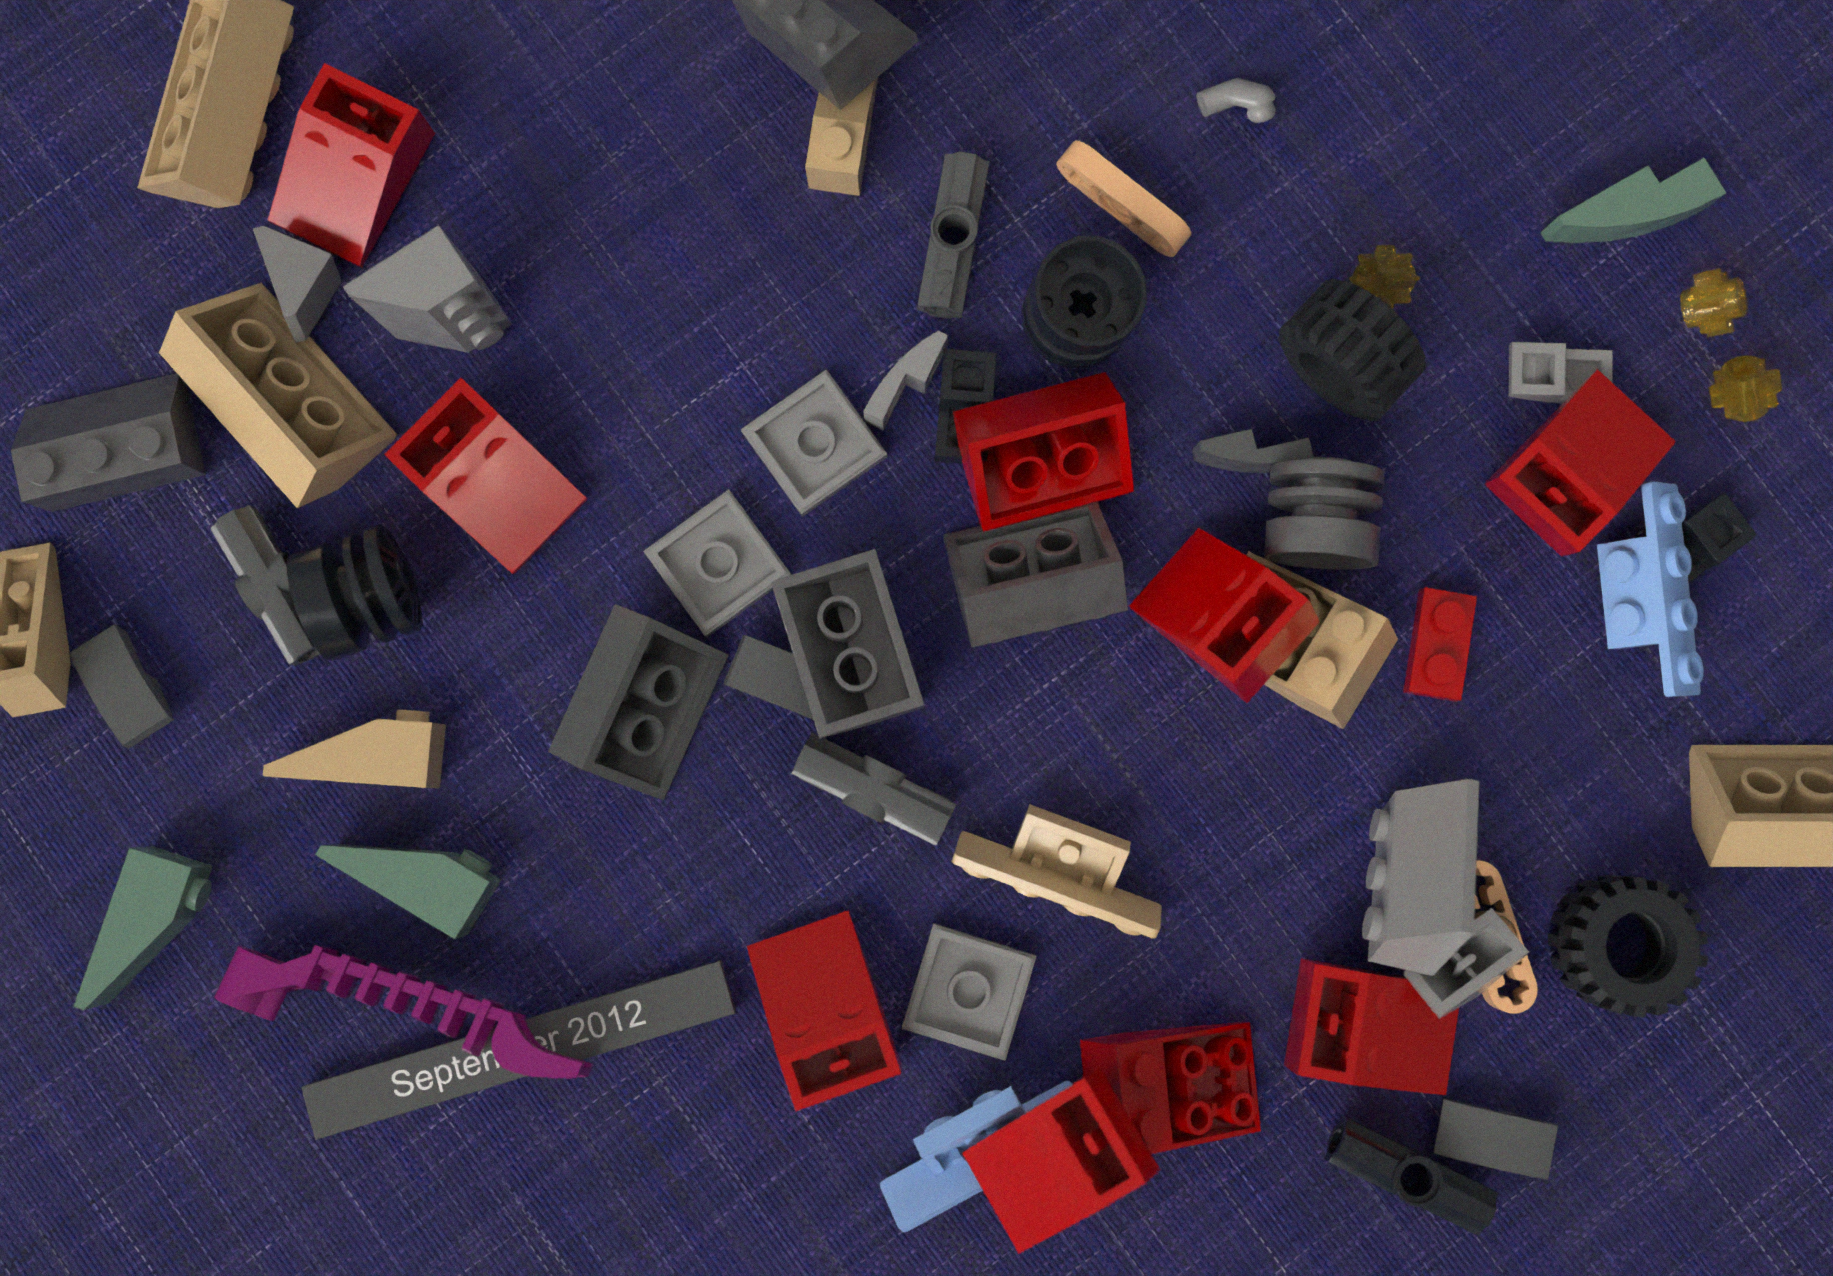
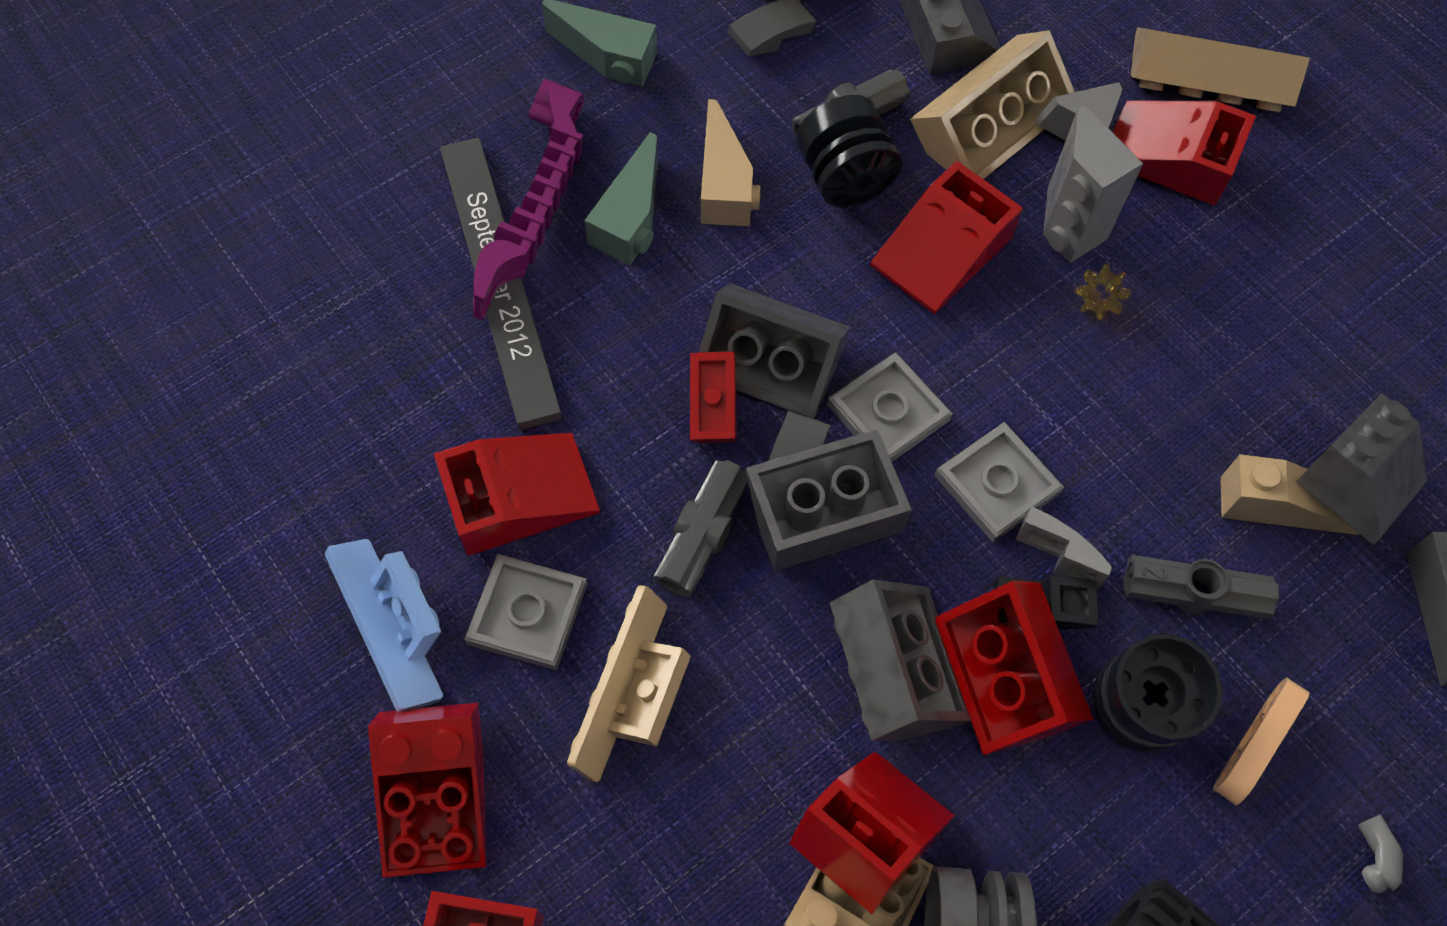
camera: 90 degrees right, 20 degrees down
(568, 291) = (1113, 285): none -> clear yellow gear
(706, 775) = (713, 397): none -> red plate
(1061, 1161) = (375, 668): red slope -> none
(1239, 452) = (1030, 848): dark grey slope -> none

